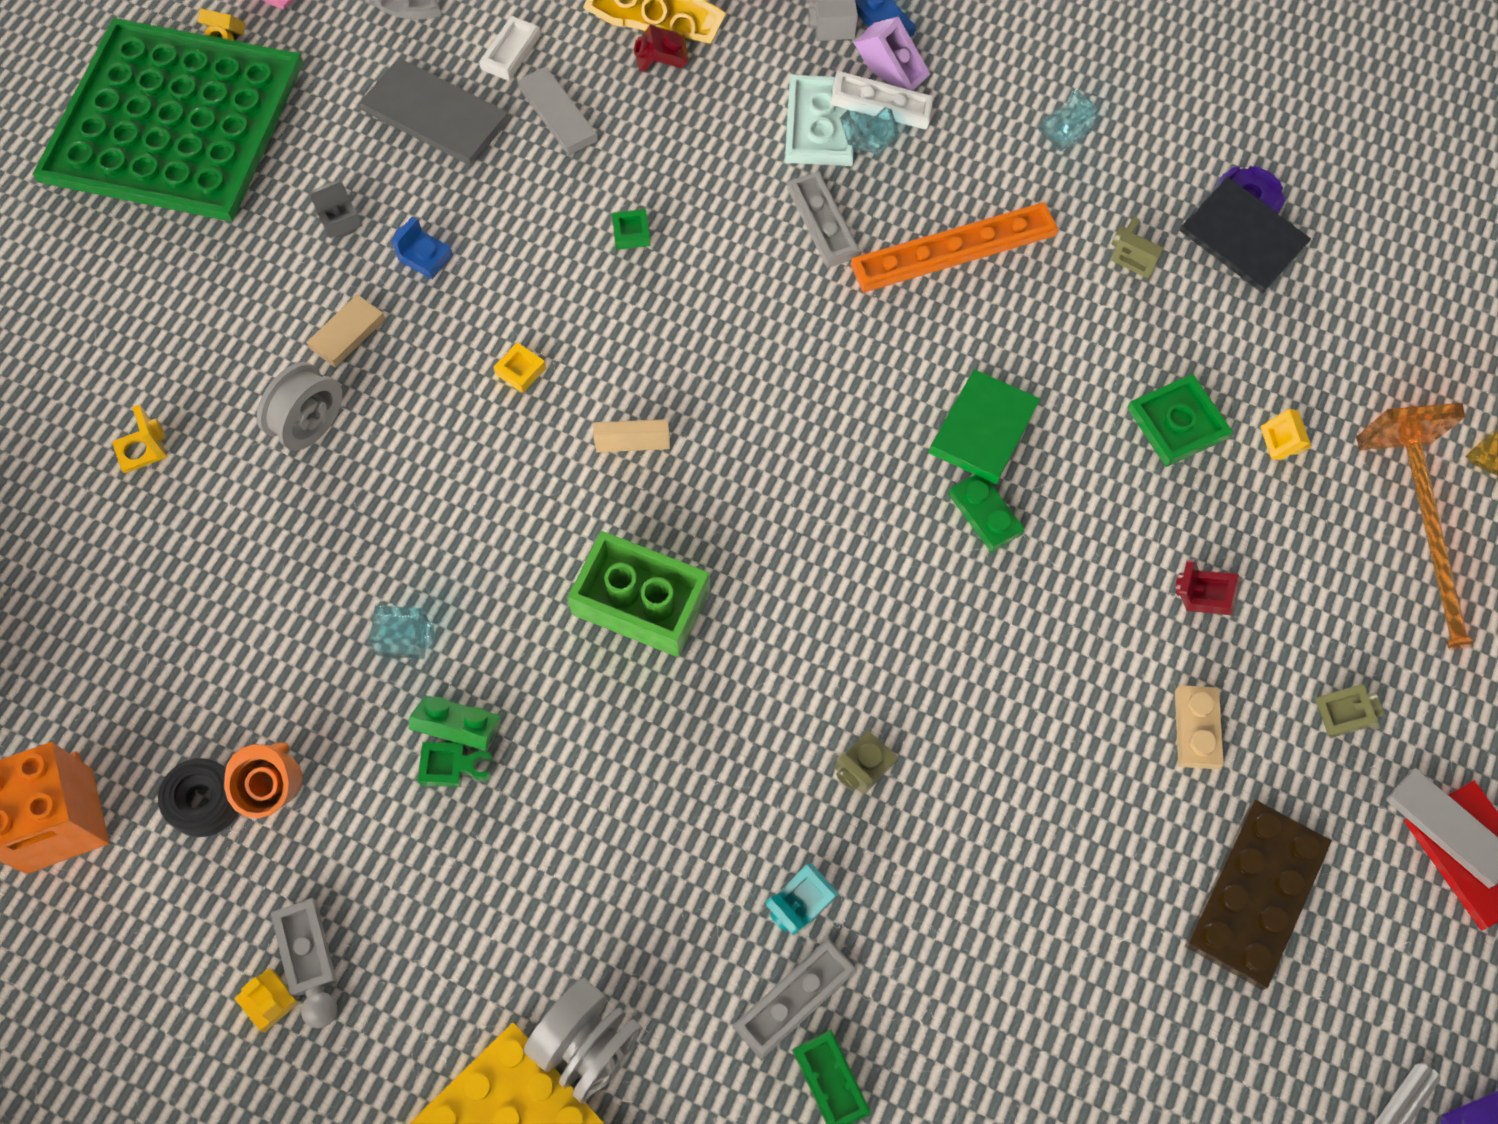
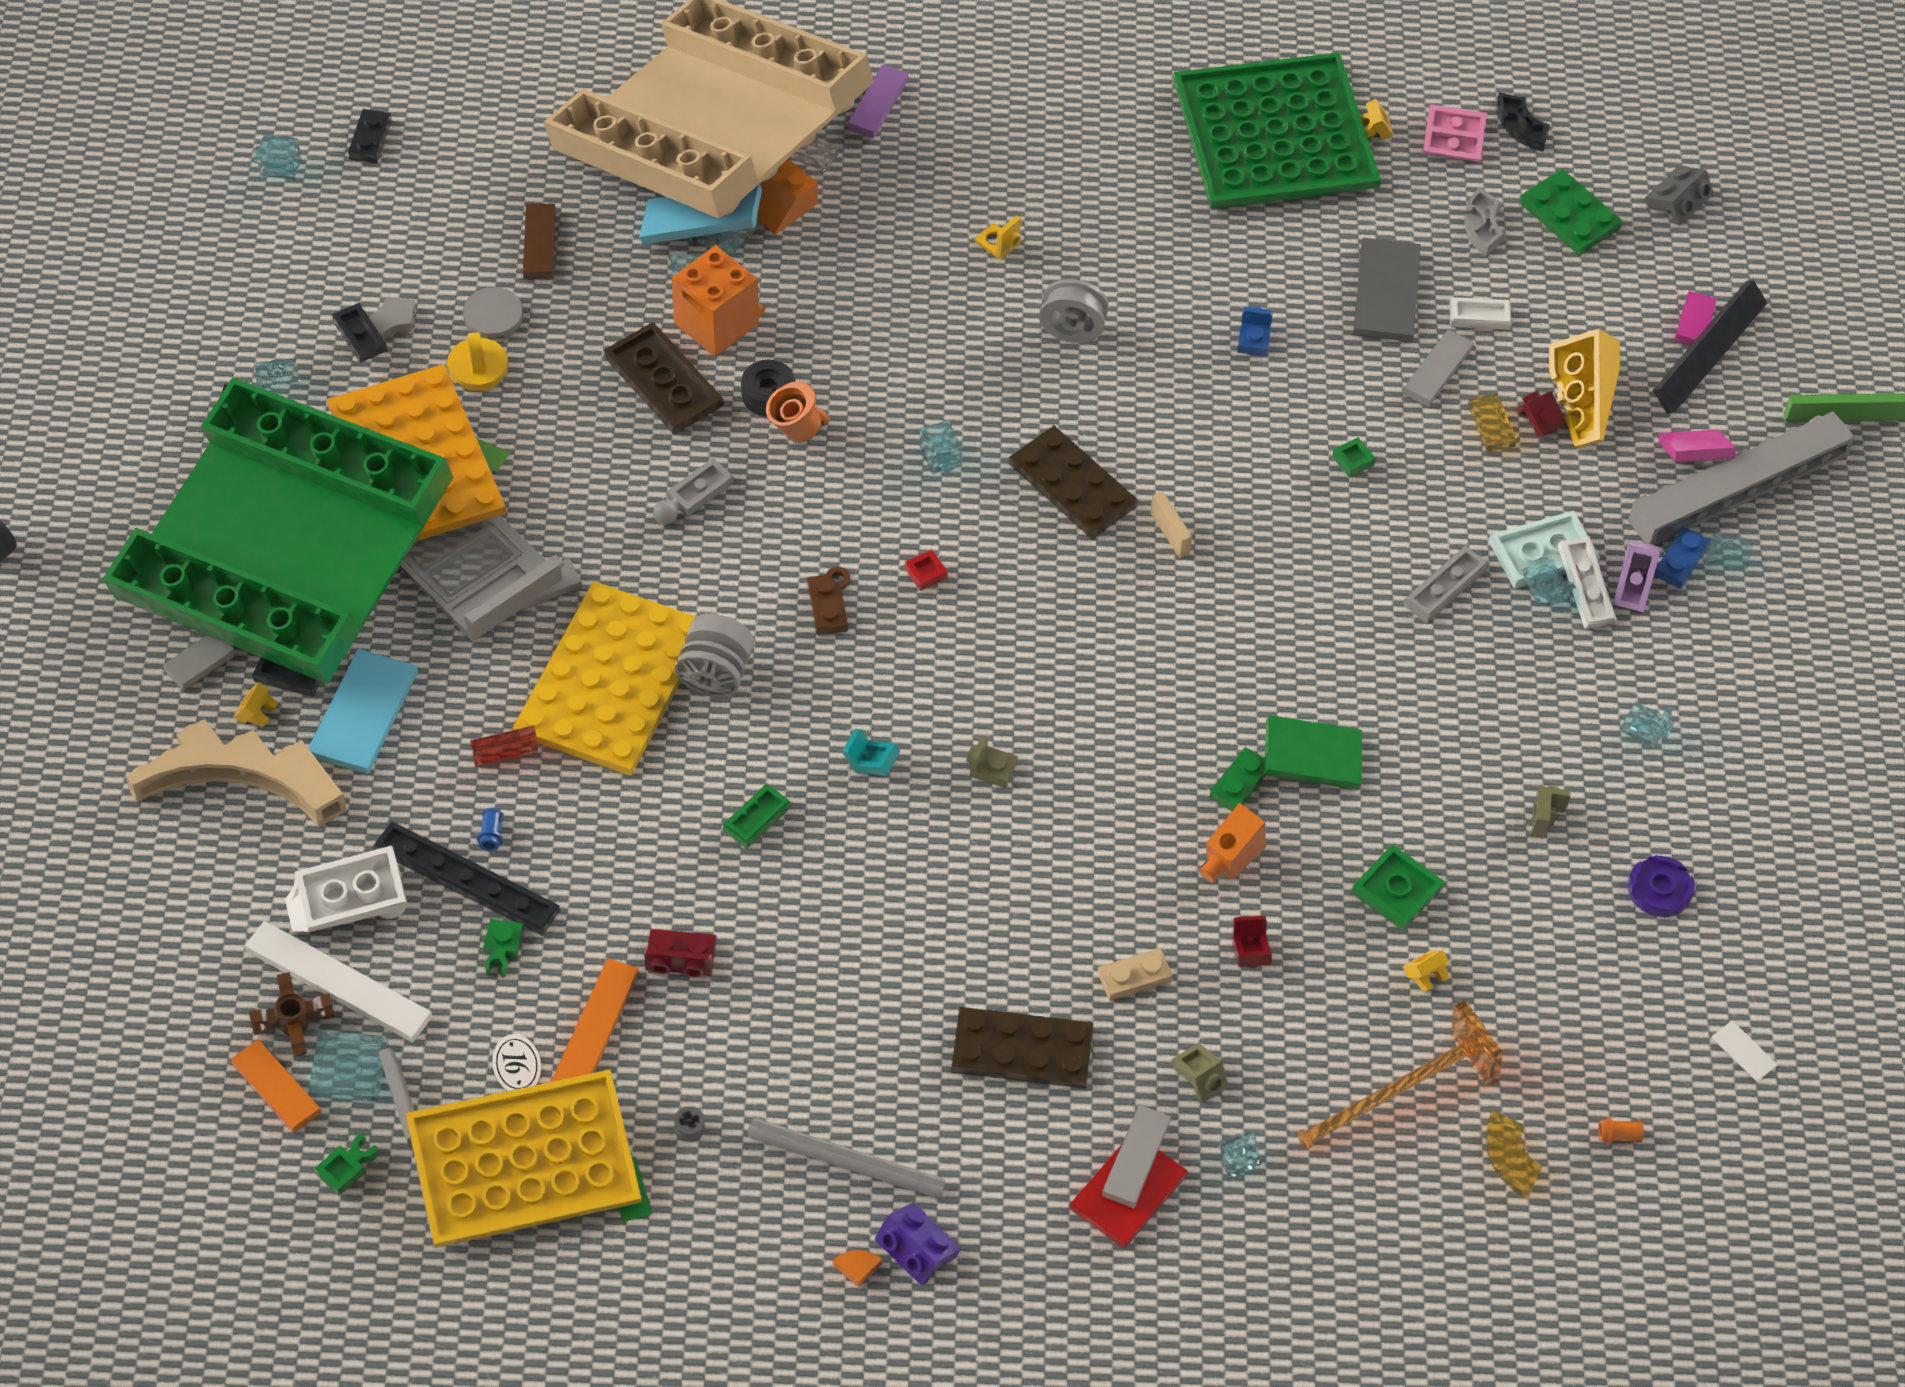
camera: 65 degrees right, 10 degrees down
(107, 925) = (663, 378): none -> dark brown plate
(266, 1000) = (657, 481): yellow tile -> none
(335, 209) = (1255, 265): dark grey bracket -> none
(346, 330) = (1159, 317): tan tile -> none
(446, 764) = (861, 514): green plate -> none
(454, 722) = (892, 506): green plate -> none
(517, 512) = (1073, 482): none -> dark brown plate
(520, 367) = (1191, 436): yellow tile -> none
(549, 857) = (828, 601): none -> reddish brown hinge
(564, 723) = (926, 570): none -> red plate
(639, 593) = (1043, 573): bright green brick -> none
(648, 95) = (1492, 422): none -> clear yellow tile
(794, 998) = (802, 779): light grey tile -> none
(953, 247) = (1475, 685): orange tile -> none
(1085, 552) = (1234, 844): none -> orange torso
(1245, 234) = (1611, 886): black tile -> none
(1449, 213) = (1744, 1051): none -> white sticker
(1467, 714) = (1240, 1153): none -> clear light blue tile

